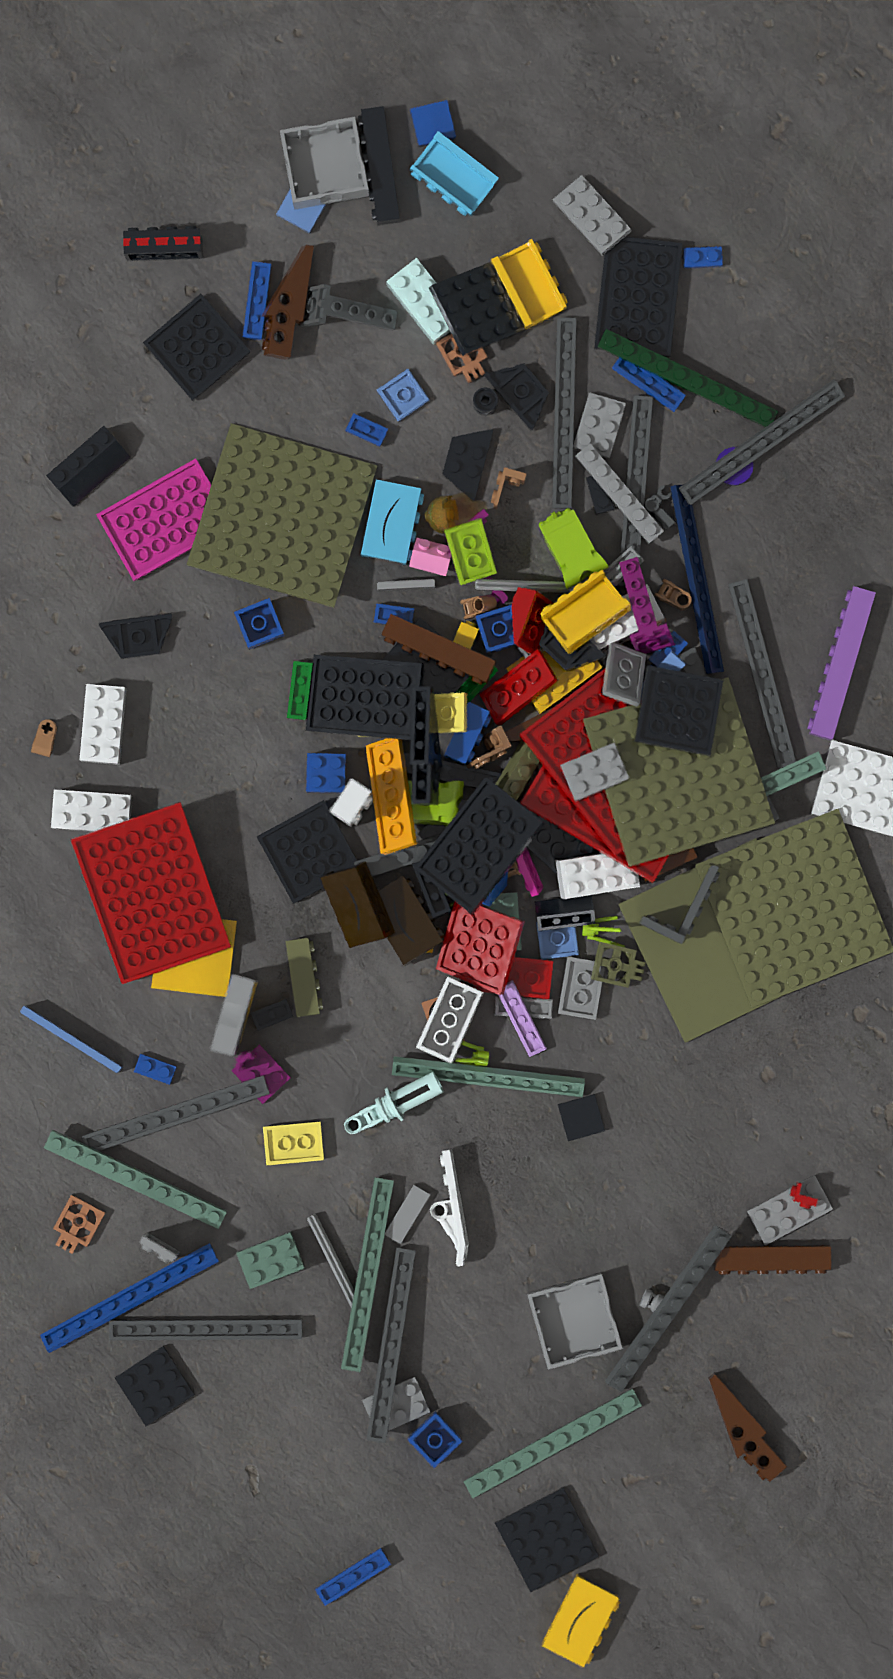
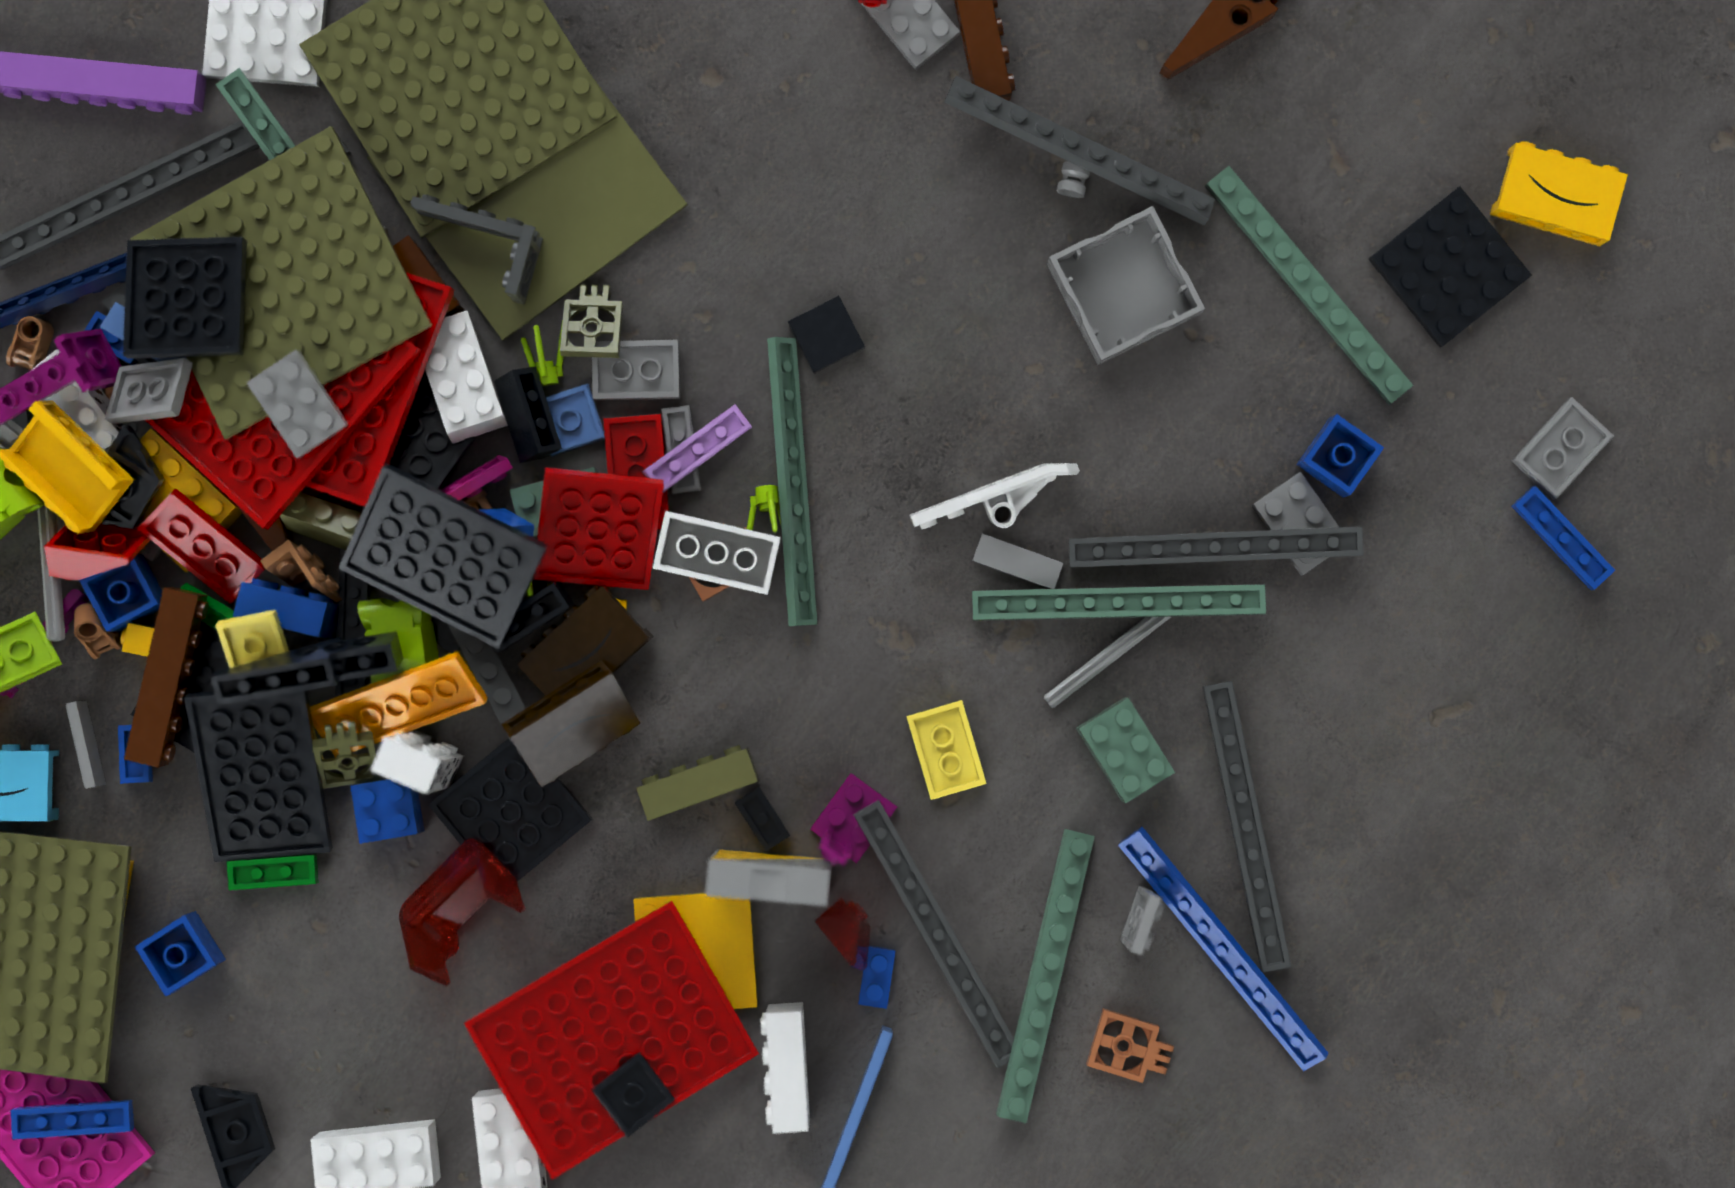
camera: 100 degrees left, 0 degrees up
(110, 1001) = (787, 1064): none -> white brick
(113, 900) = (633, 1094): none -> black tile
(154, 1386) = (1343, 885): black plate -> none
(166, 536) = (72, 1119): none -> blue plate
(190, 1057) = (848, 931): none -> clear red slope
(260, 803) = (448, 901): none -> clear red windscreen
(374, 756) = (343, 741): none -> olive piece
(387, 1106) = (867, 620): light aqua piece -> none
(412, 1589) = (1562, 448): none -> light grey tile
(430, 557) = (33, 715): bright pink brick -> none

